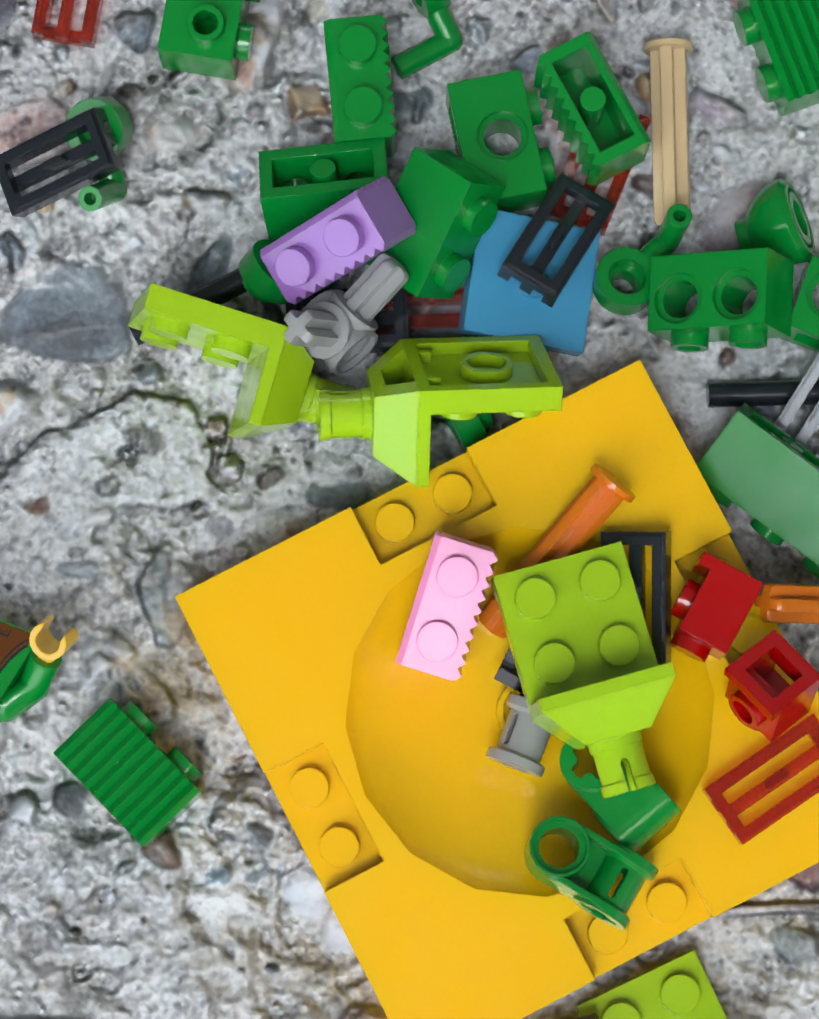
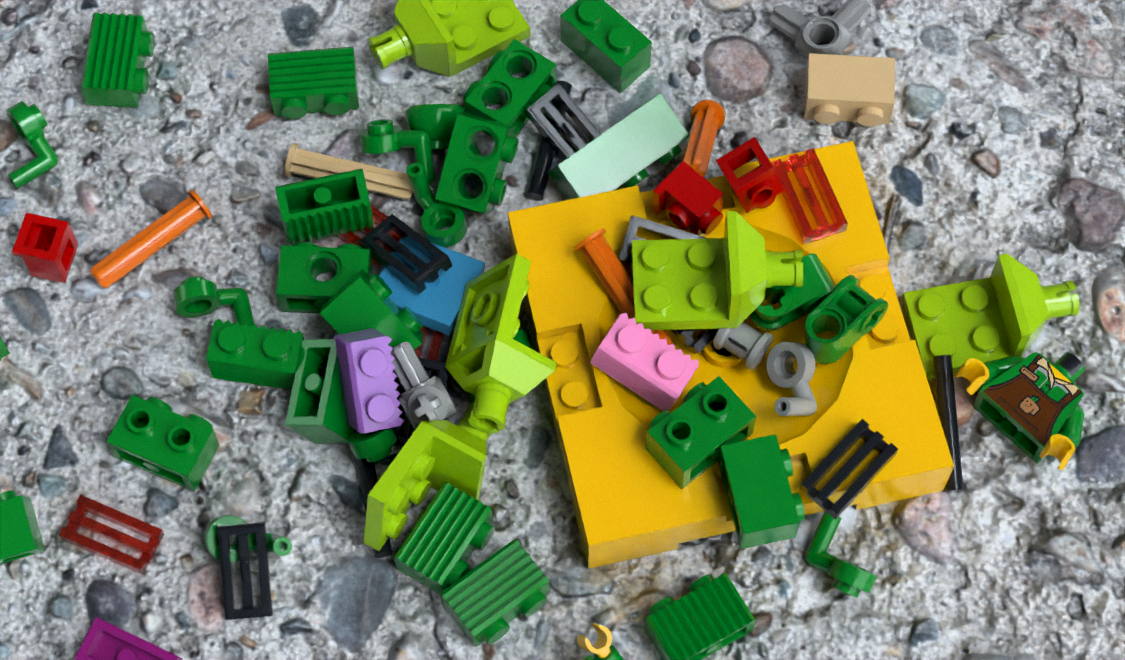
camera: 75 degrees left, 15 degrees down
(105, 493) = (496, 594): none -> green brick
(163, 408) = (445, 539): none -> green brick
(249, 957) = (848, 576): none -> green plate
(295, 809) = (759, 491): none -> green brick
(317, 898) = (873, 441): none -> black tile
(364, 704) = (691, 435): none -> green brick
(501, 813) = (782, 374): none -> light grey plate
(733, 164) = (385, 137): none -> green plate

